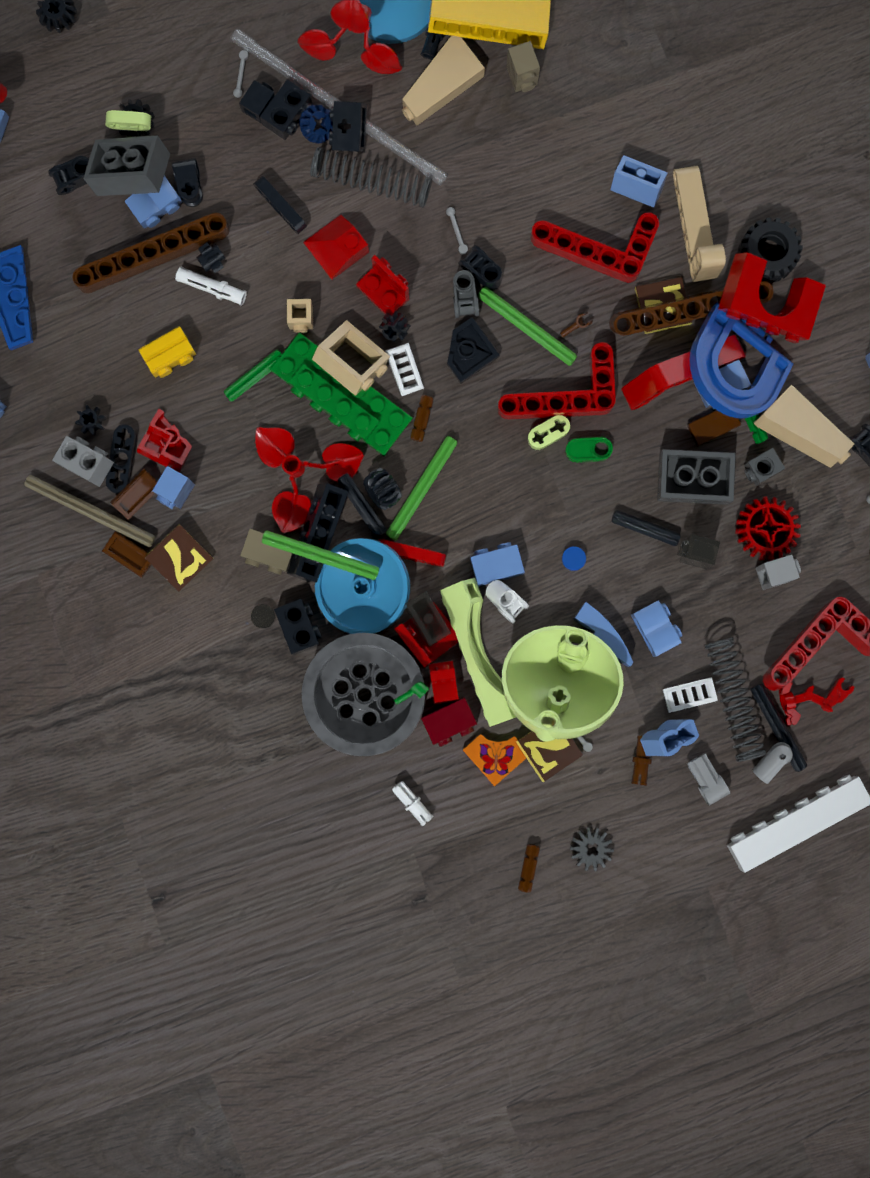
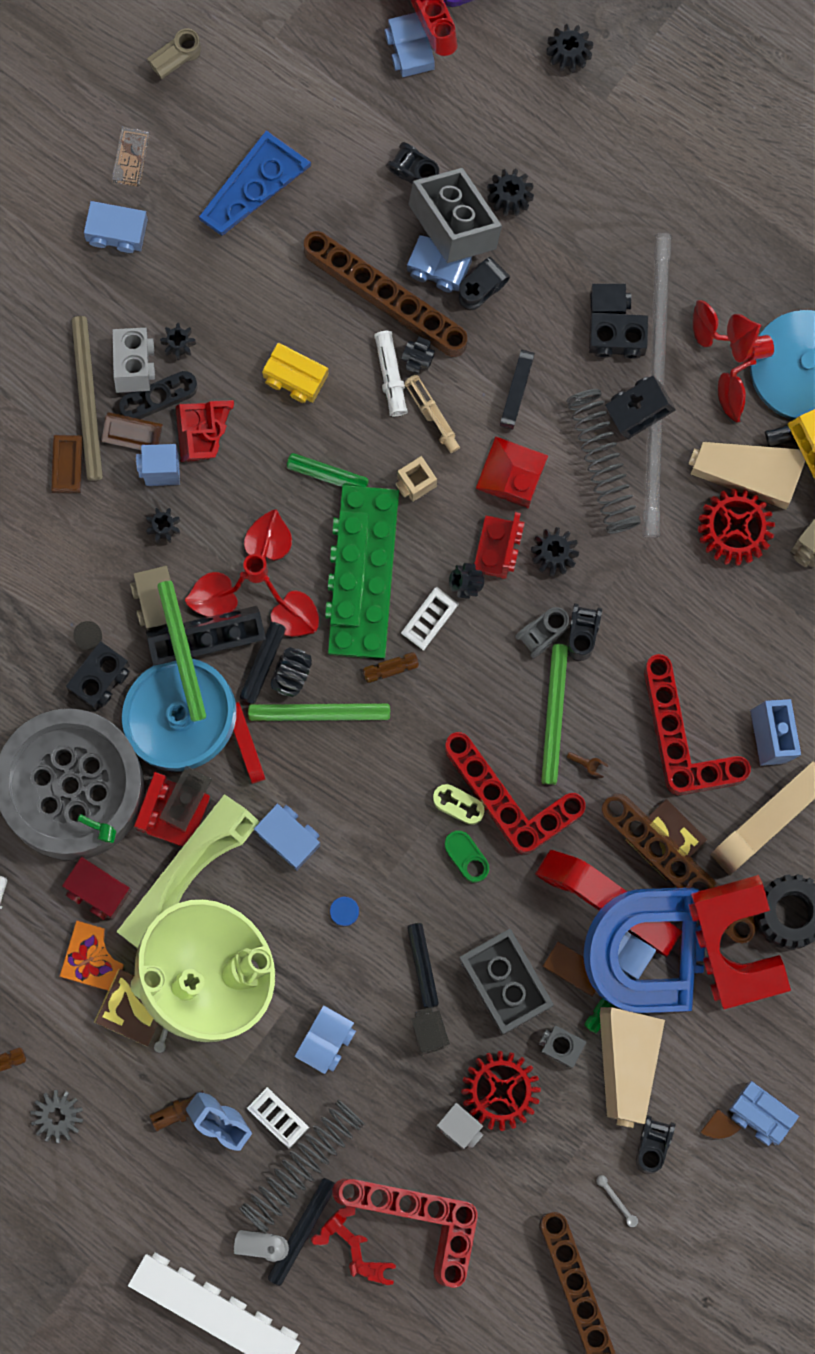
camera: 50 degrees right, 5 degrees down
(128, 120) = (501, 187): yellowish green beam -> none
(178, 557) = (94, 515): reddish brown tile -> none
(225, 515) = (159, 518): none -> black gear
(243, 56) = (648, 258): light grey hinge -> none
(258, 275) = (433, 413): none -> tan piece
(308, 124) = (617, 364): dark blue gear -> none
(340, 370) = (383, 555): tan window -> none
(414, 260) = (564, 547): none -> black gear
(443, 682) = (132, 857): red brick -> none
(462, 247) = (593, 599): light grey hinge -> none
(467, 119) = (730, 518): none -> red gear
(469, 351) = (490, 671): black plate -> none
(506, 600) = (256, 867): white piece -> none
(596, 623) = (285, 989): medium blue slope -> none
(710, 783) = (199, 1195): light grey piece -> none

